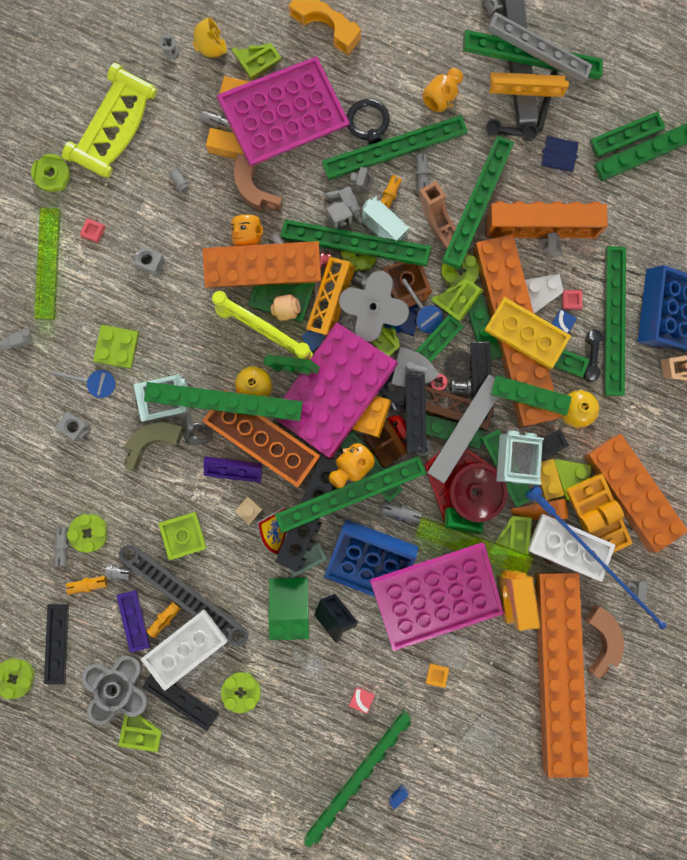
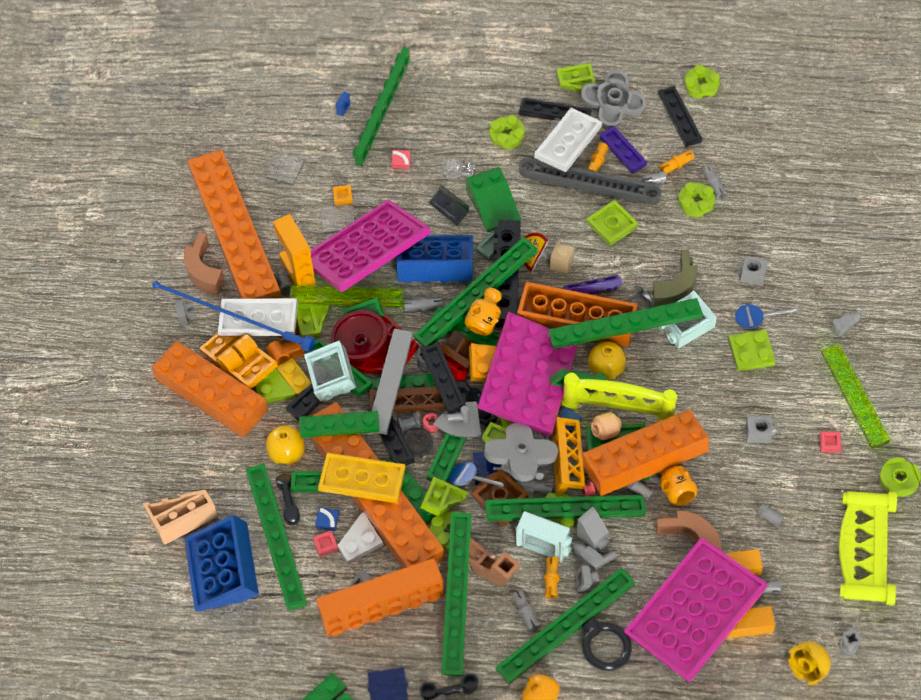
camera: 165 degrees right, 25 degrees down
(257, 59) = (752, 665): lime wing -> none

